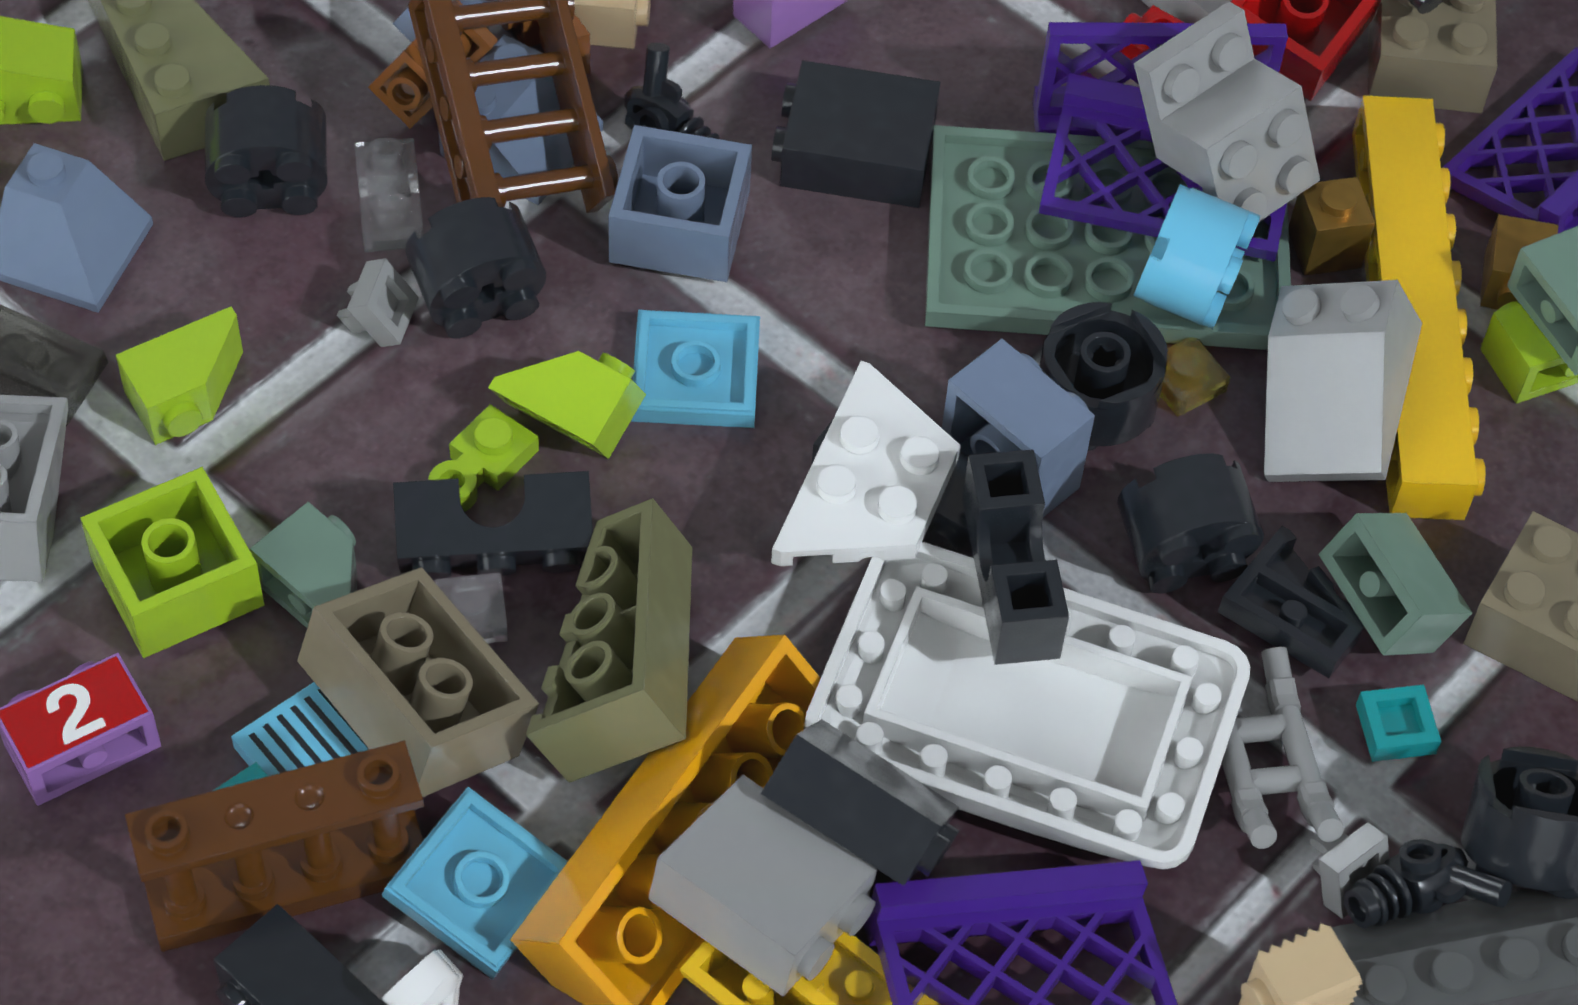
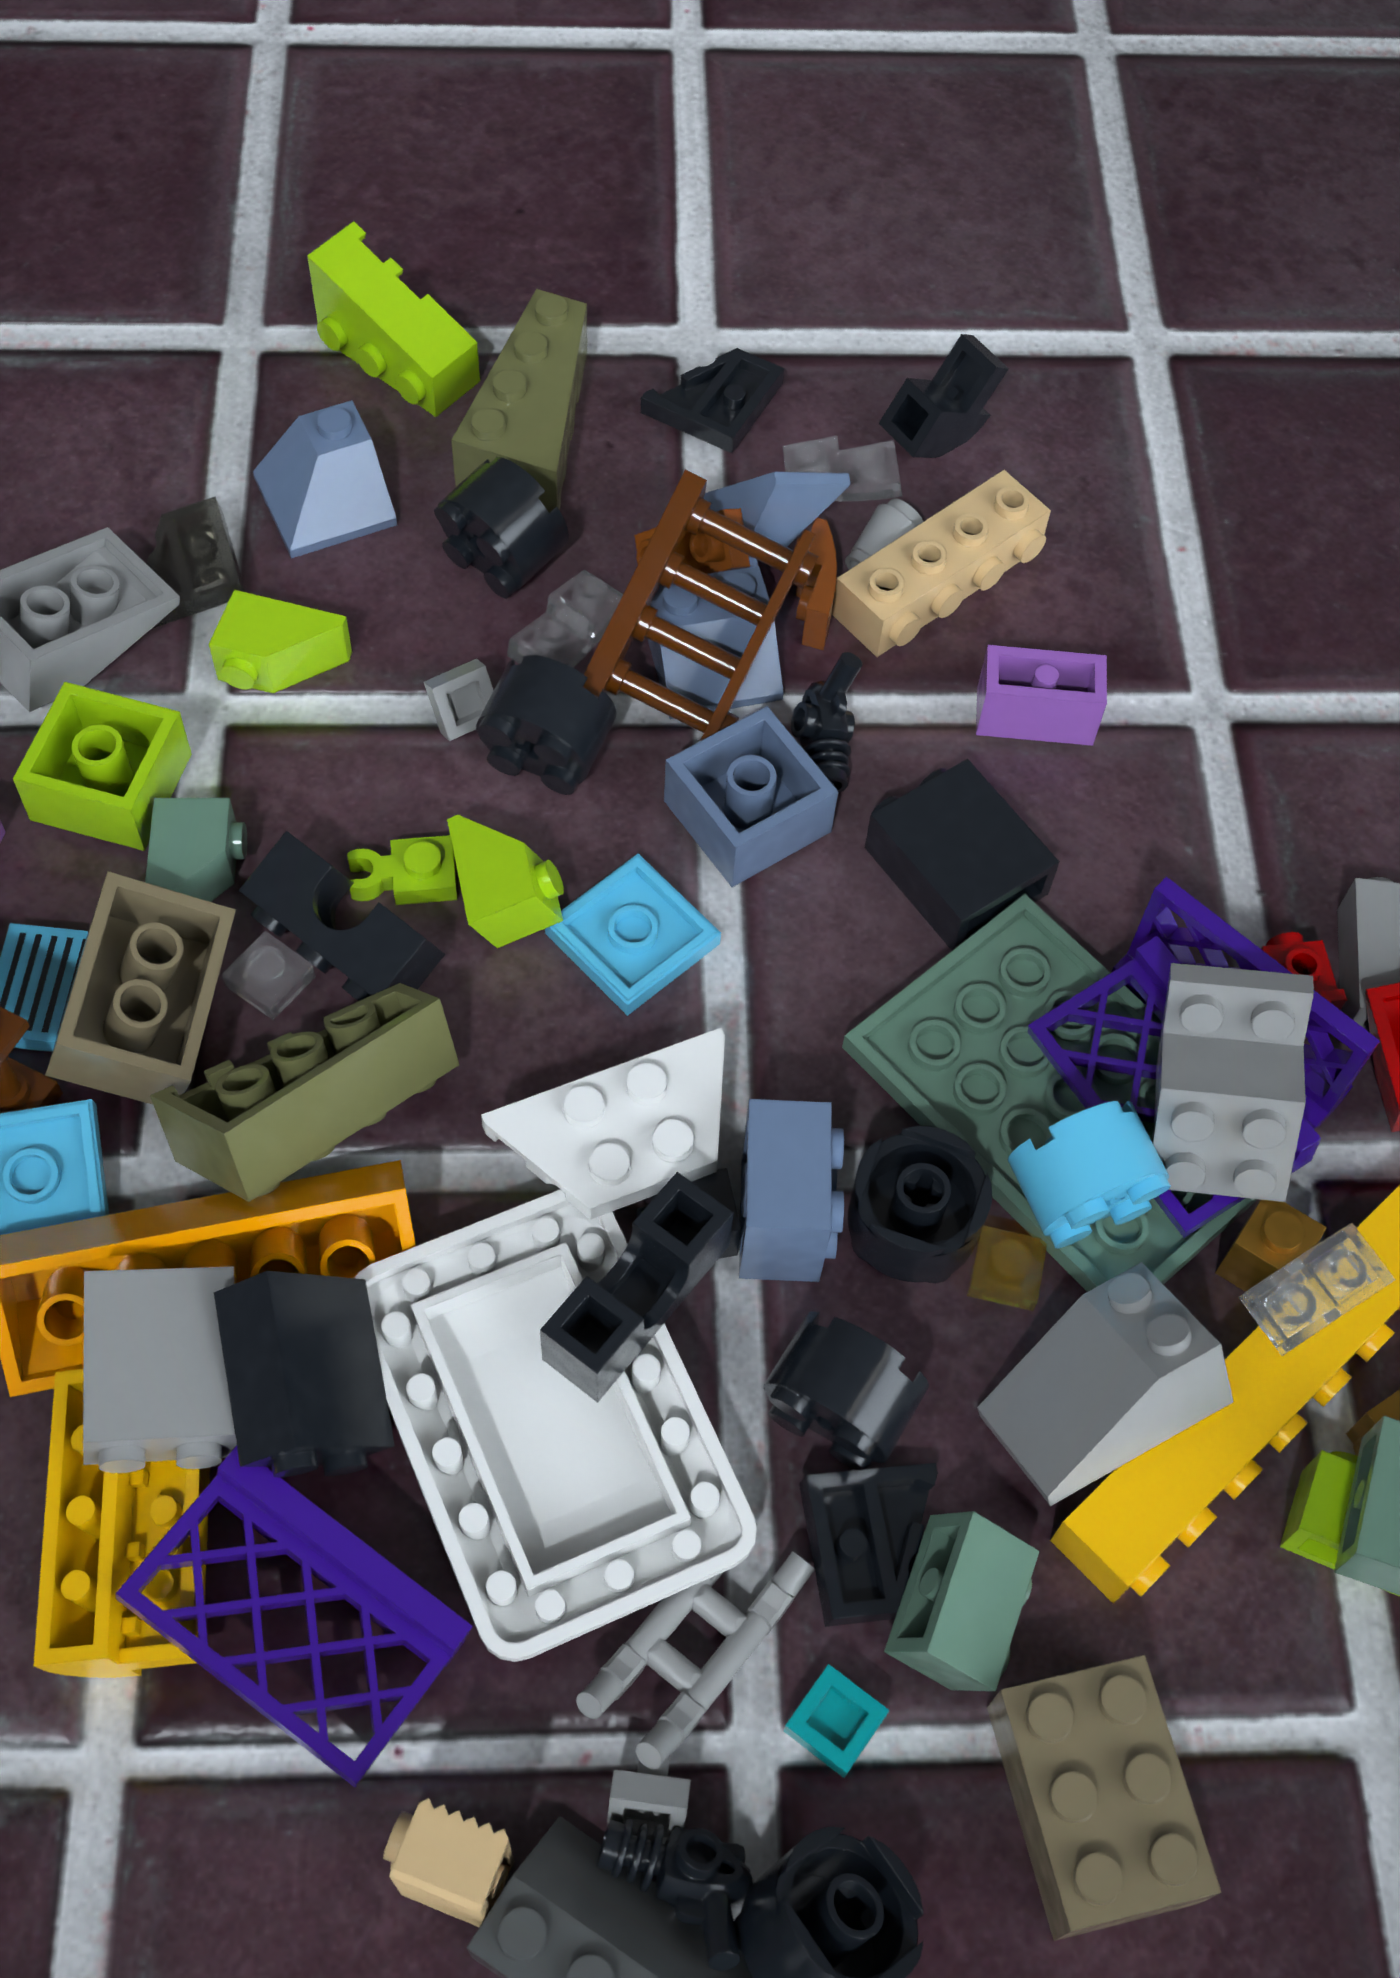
camera: 45 degrees right, 5 degrees up
(1397, 215) = (1316, 1288): none -> clear slope

